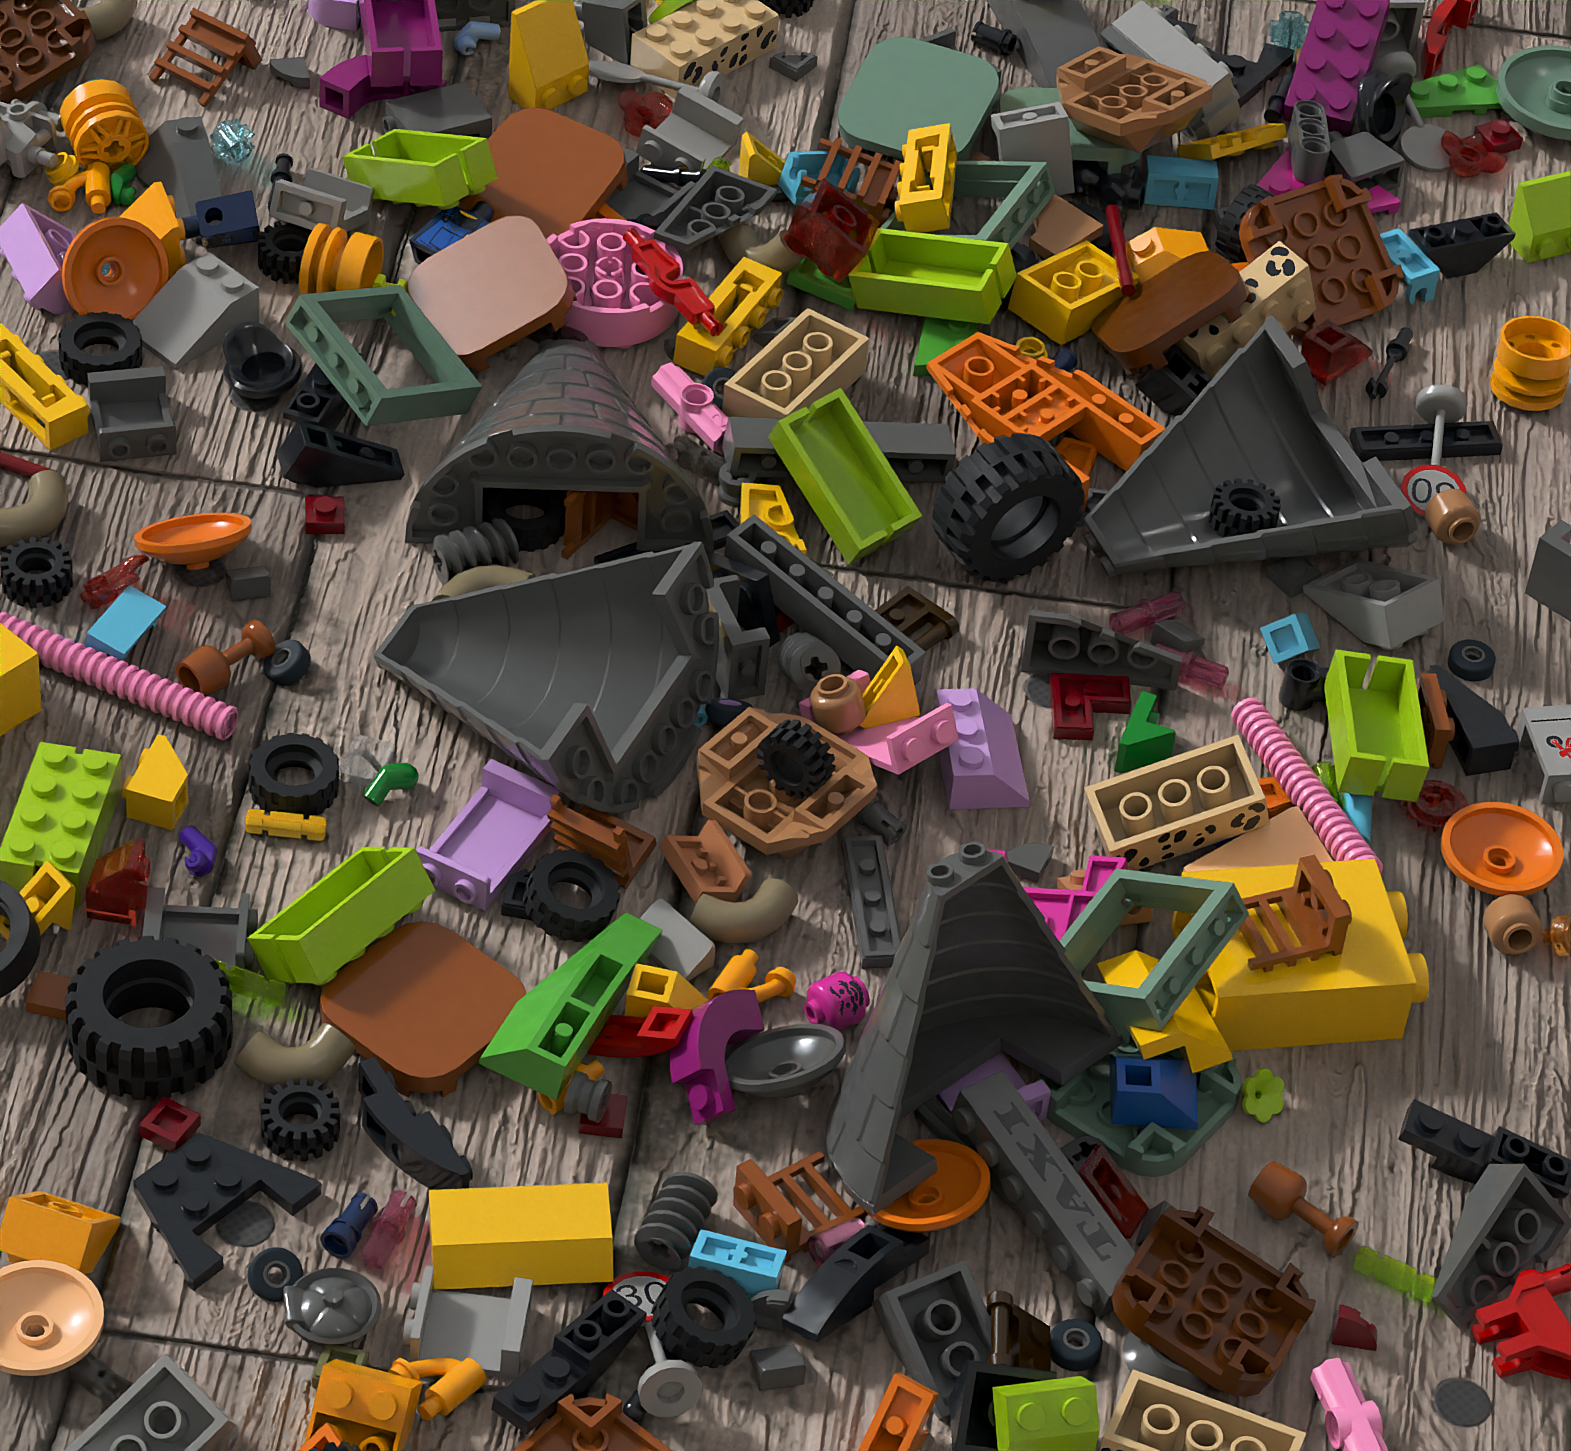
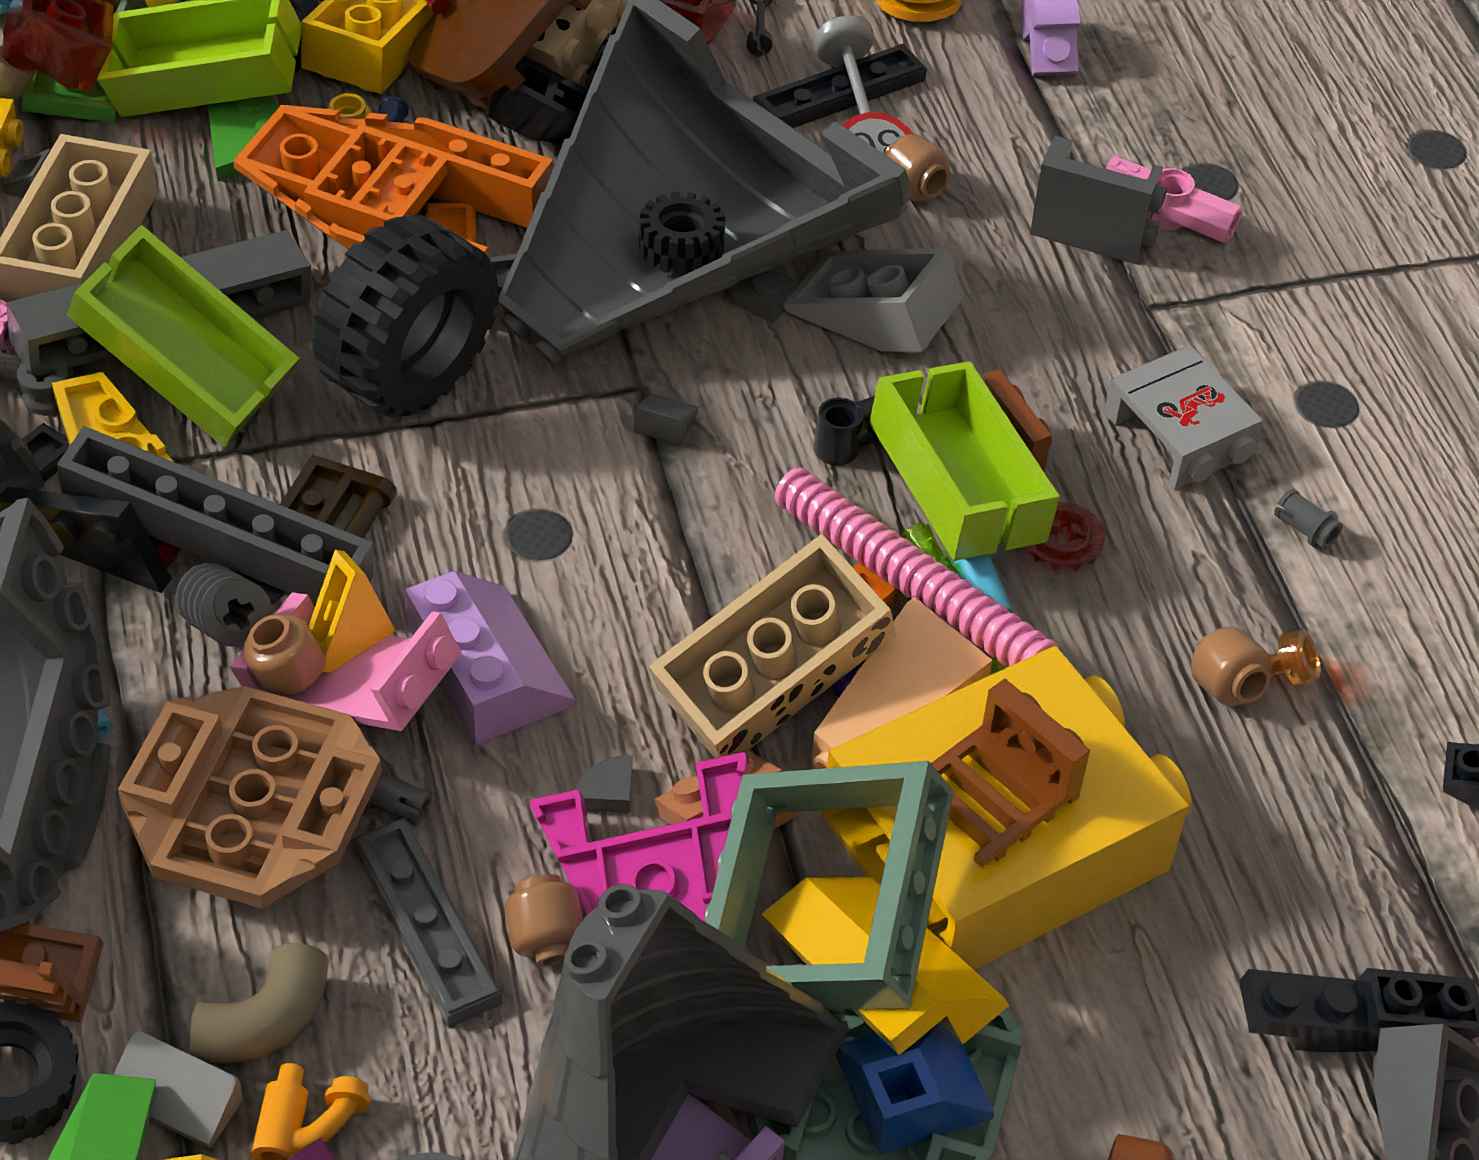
camera: 20 degrees left, 5 degrees up
(707, 863) = (184, 950): nougat bracket -> none
(723, 710) = (137, 705): black wheel -> none
(740, 654) = (130, 627): dark grey panel -> none
(795, 759) = (259, 762): black tyre -> none
(837, 1001) = (438, 1104): dark pink head -> none
(1078, 696) = (578, 535): dark red tile -> none
(1079, 647) = (558, 471): dark grey wedge -> none
(1143, 739) = (685, 567): green slope -> none
(1147, 613) = (617, 397): clear pink axle -> none
(1199, 668) = (695, 449): clear pink axle -> none
(1263, 1095) = (1049, 1029): lime plant -> none
(1290, 637) = (799, 375): medium azure panel -> none
(1473, 670) = (1010, 347): black wheel -> none
(1482, 734) = (1081, 426): black slope -> none
(1501, 849) = (1176, 571): orange dish -> none

